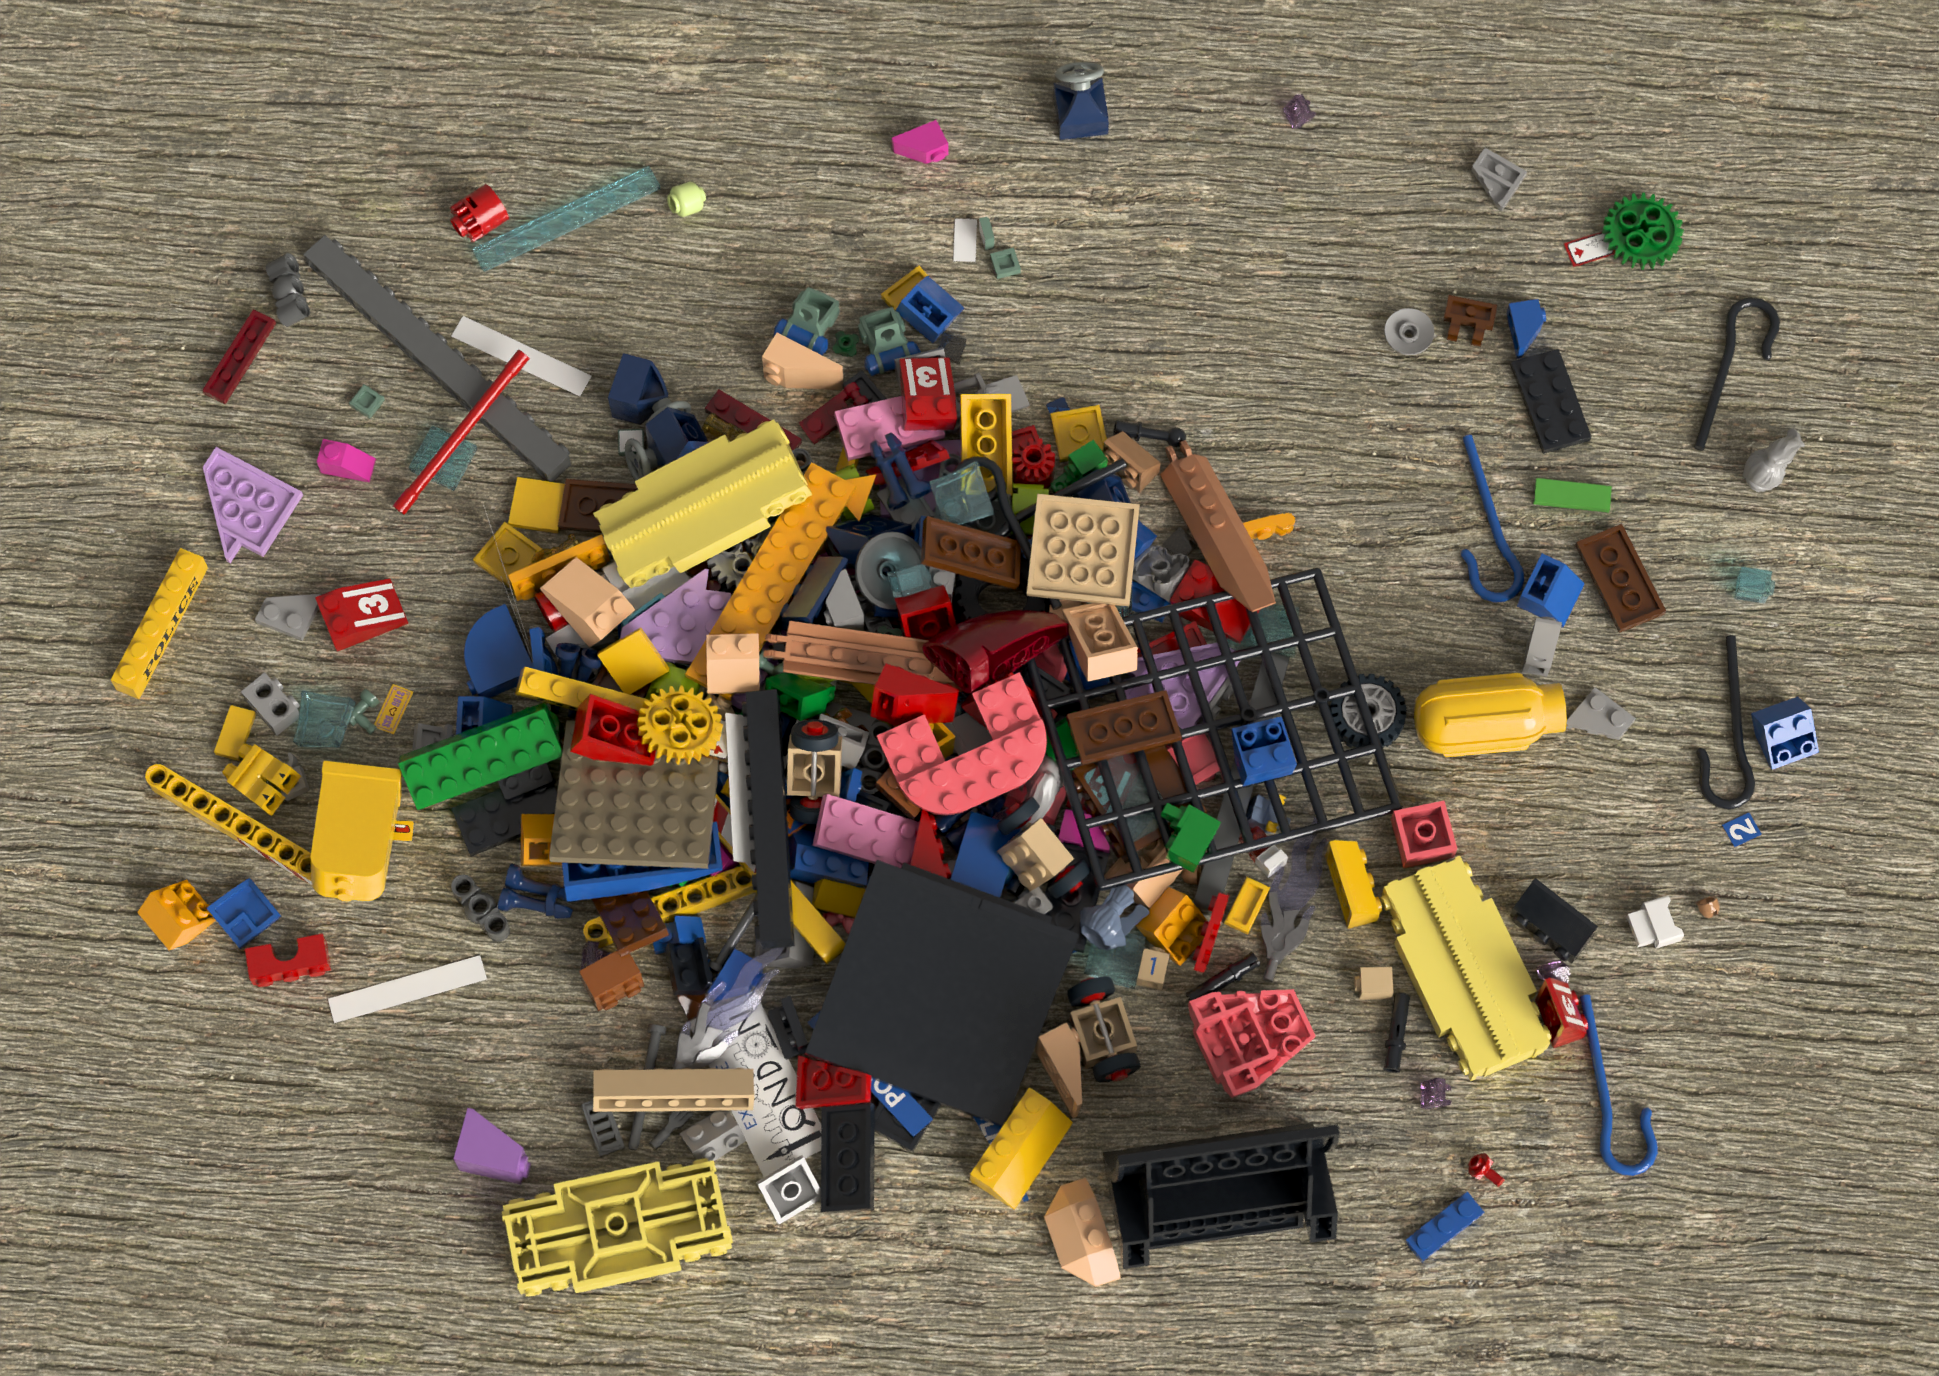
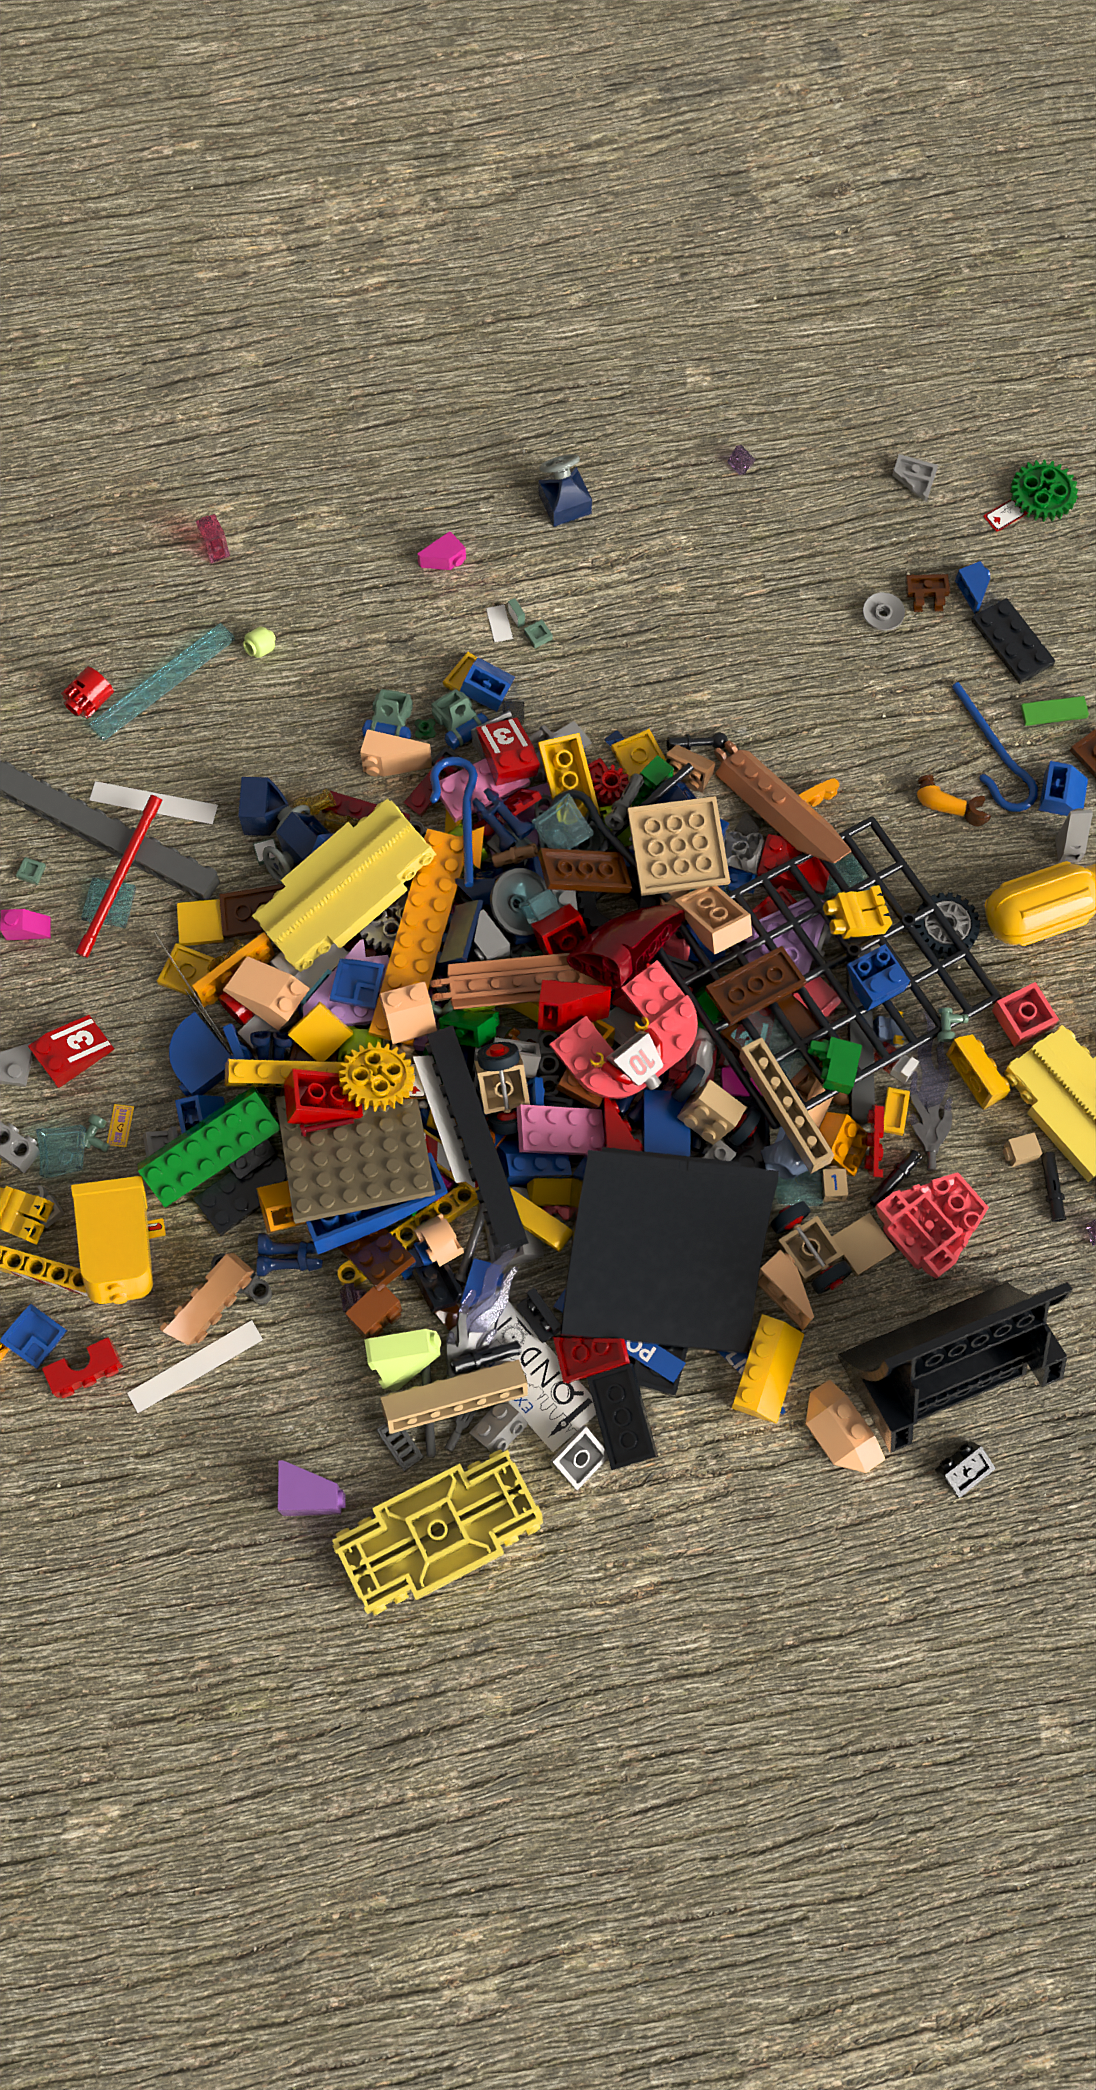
camera: 15 degrees left, 0 degrees up
(439, 921) = (209, 1300): none -> medium nougat wedge
(609, 764) = (324, 1125): none -> dark red piece
(628, 1033) = (402, 1356): none -> yellowish green slope
(664, 65) = (212, 538): none -> clear pink brick
(687, 616) = (357, 983): none -> blue plate
(701, 401) = (316, 803): none -> clear yellow connector
(703, 919) = (440, 1239): none -> light nougat cylinder
(718, 1057) = (477, 1359): none -> black pin
(861, 449) = (466, 807): none -> blue piece
(900, 515) = (515, 855): none -> medium nougat pin
(963, 775) = (636, 1059): none -> torso
(1028, 496) = (619, 808): none -> dark grey pin
(1116, 867) = (786, 1105): none -> tan brick
(1166, 1042) = (863, 1244): none -> tan tile
(1204, 1309) = (965, 1468): none -> bracket
(1264, 674) = (858, 913): none -> yellow hips
(1330, 815) = (947, 1018): none -> sand green piece
(1400, 565) = (935, 799): none -> piece

